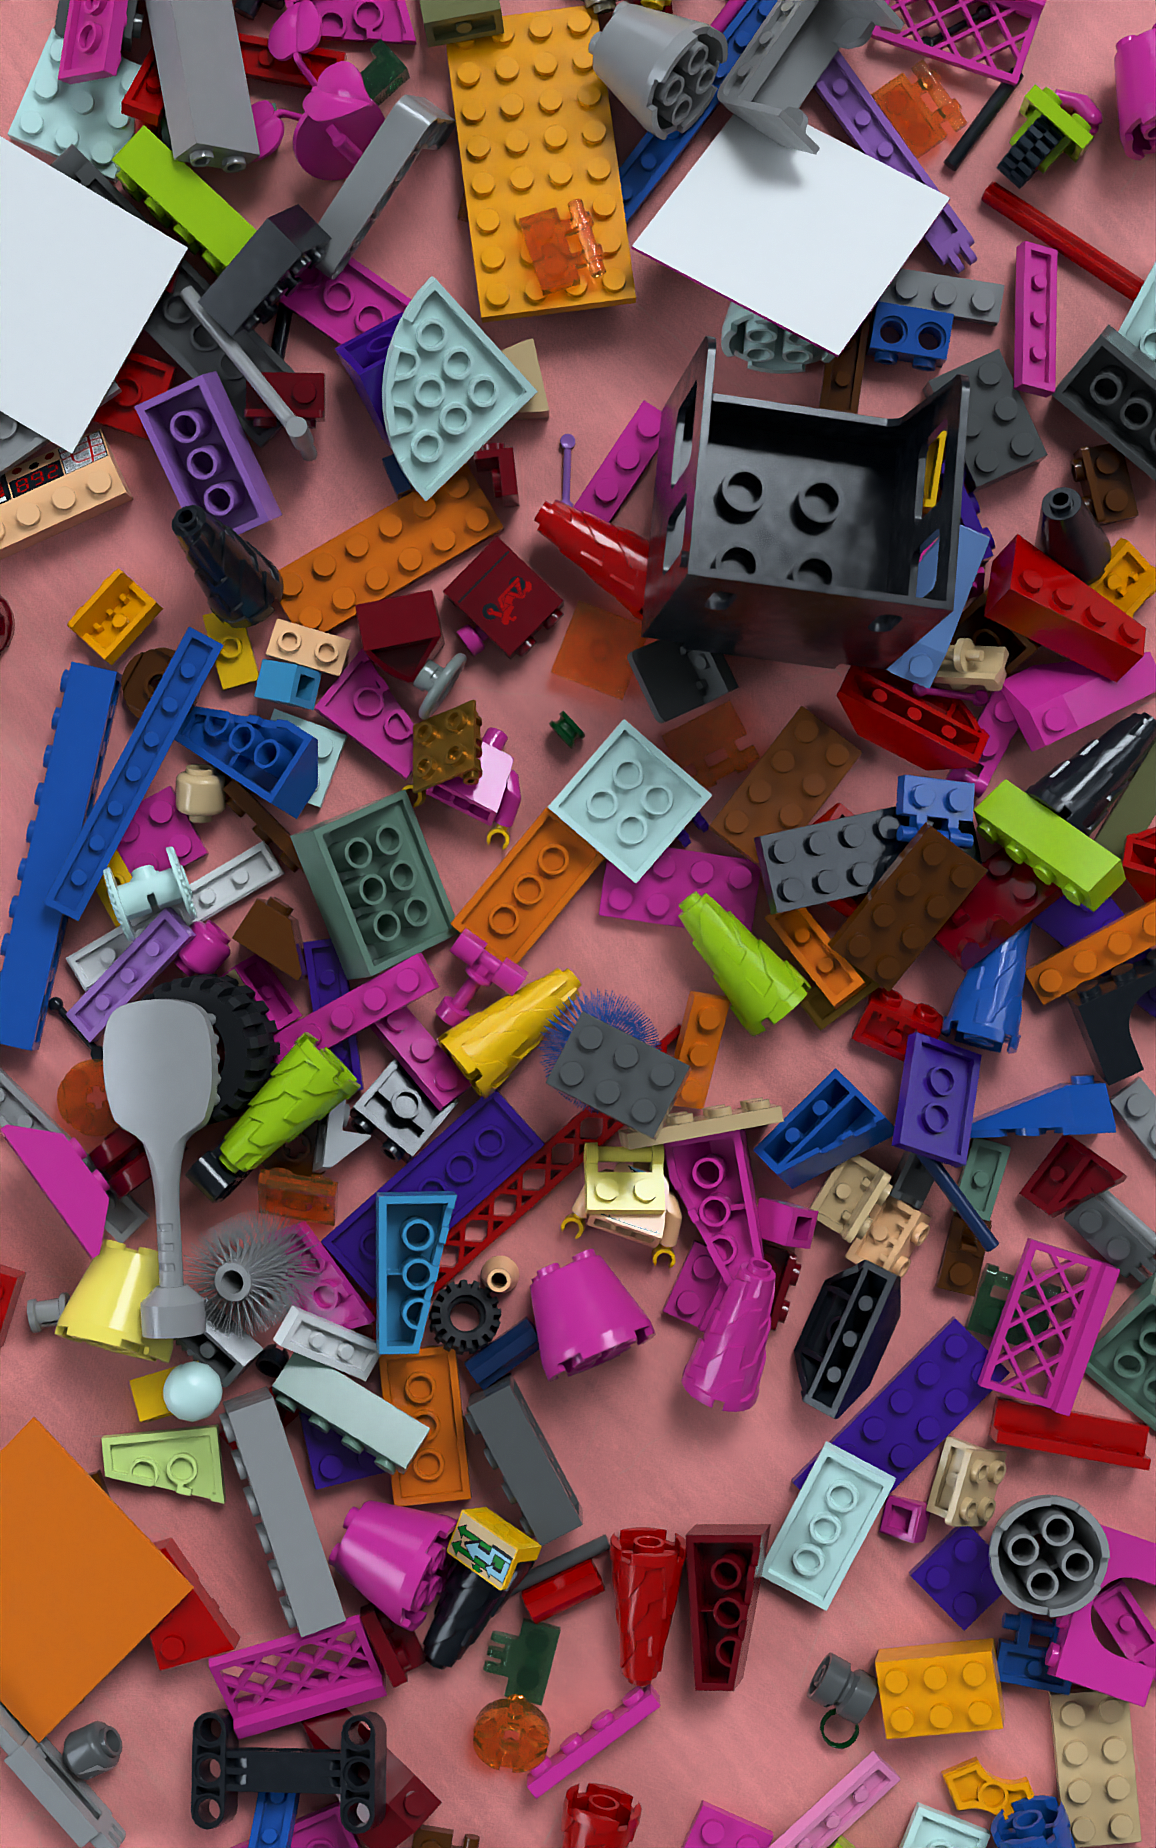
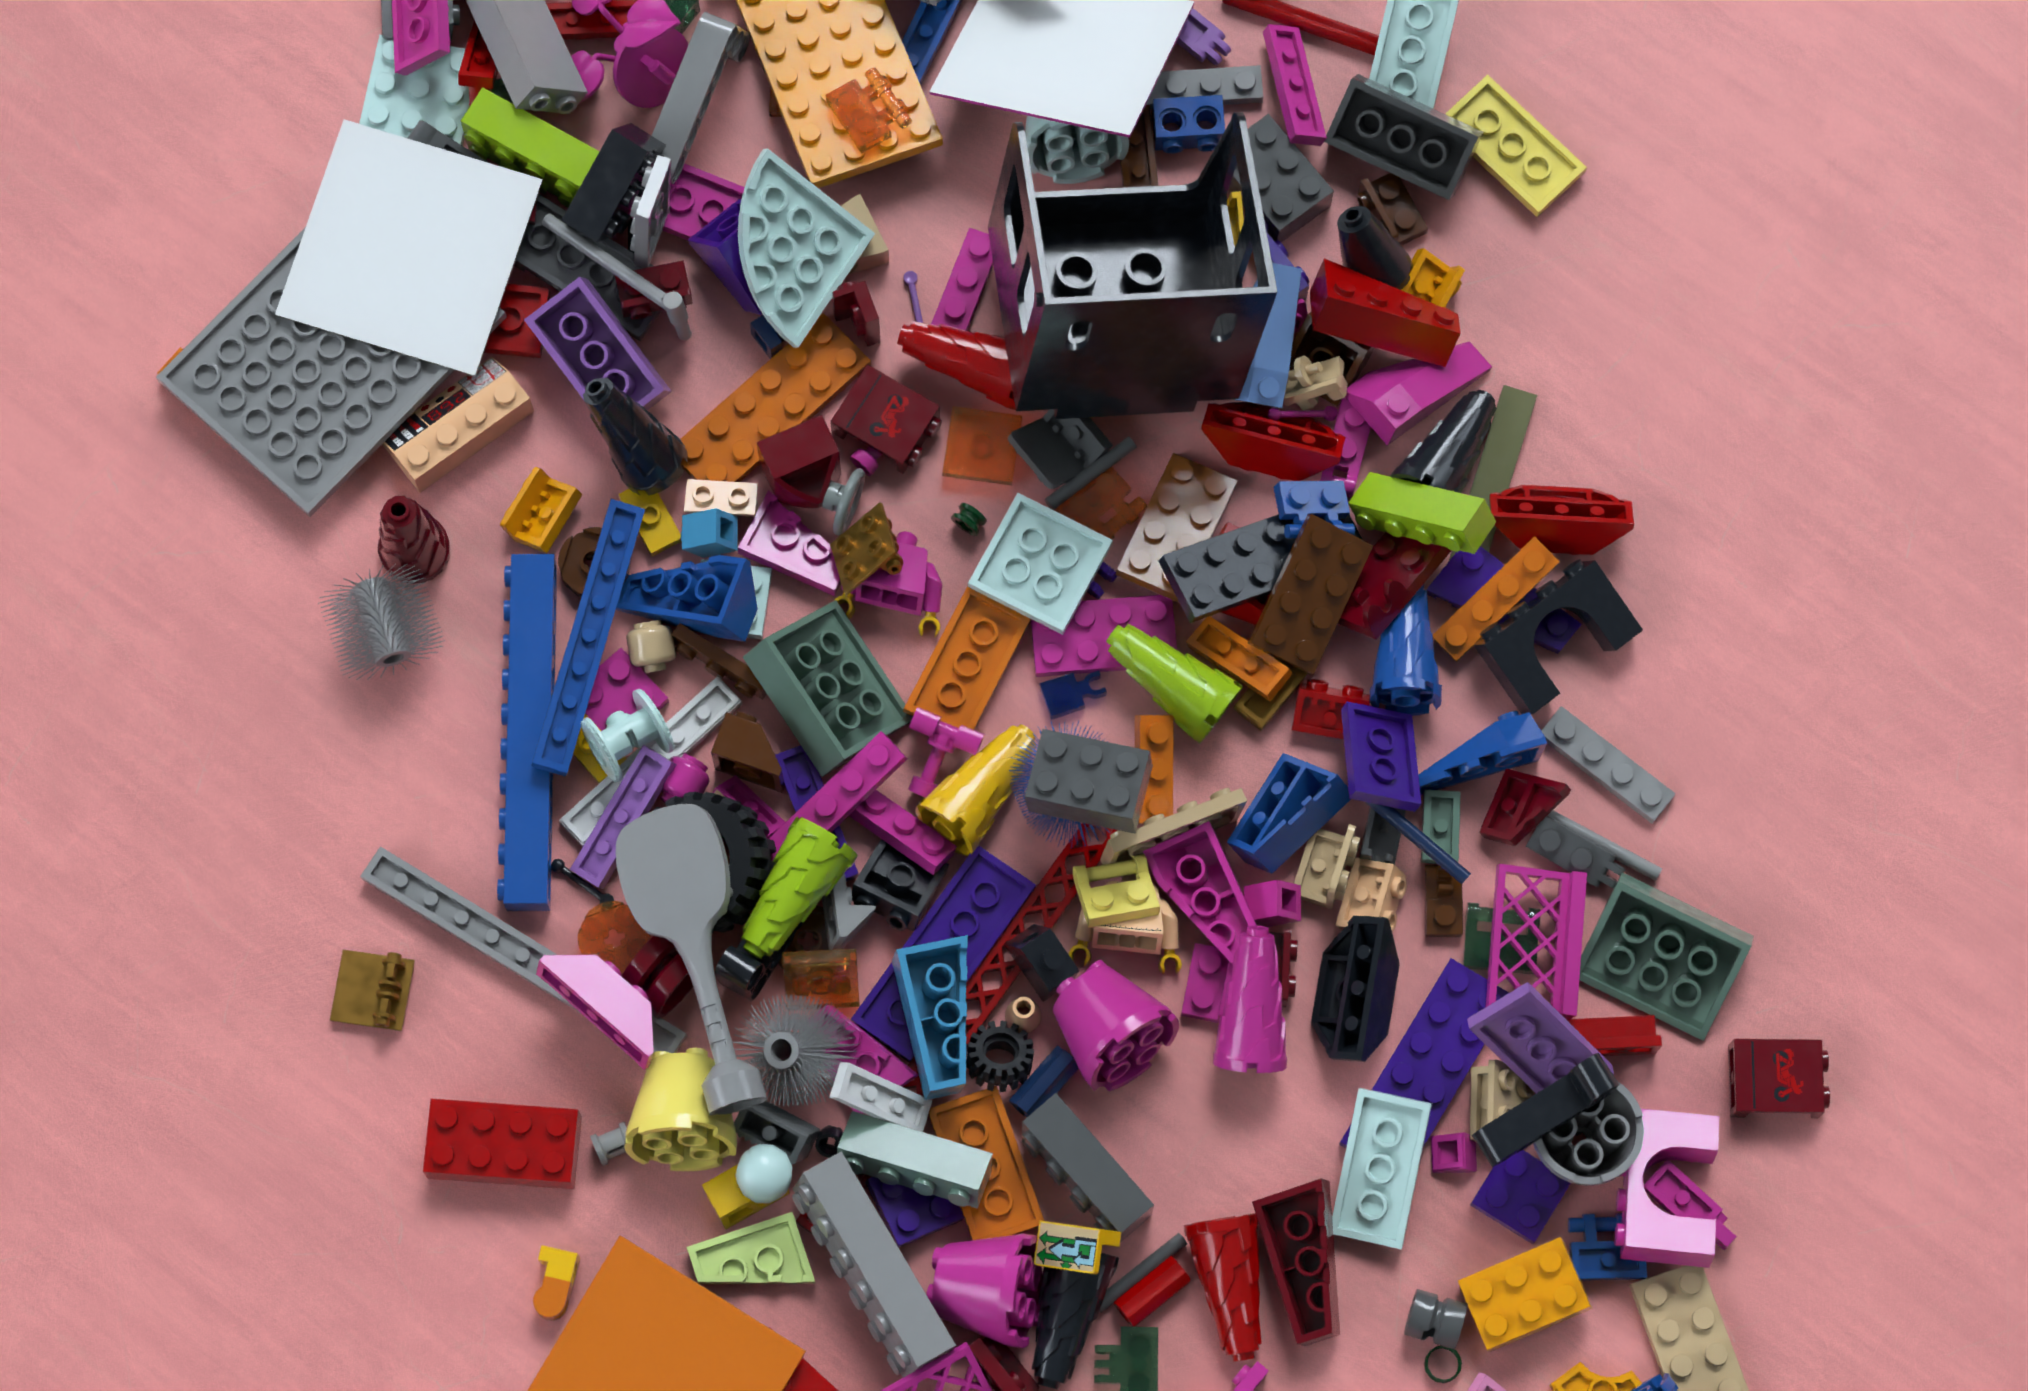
camera: 15 degrees left, 15 degrees down
(296, 317) = (650, 211): none -> light grey plate
(531, 1231) = (1042, 959): none -> black torso
(624, 943) = (1066, 695): none -> clear blue plate
(708, 710) = (1090, 473): none -> dark grey bar
(1011, 1537) = (1546, 1110): none -> black beam
(1022, 1450) = (1531, 1037): none -> medium lavender plate

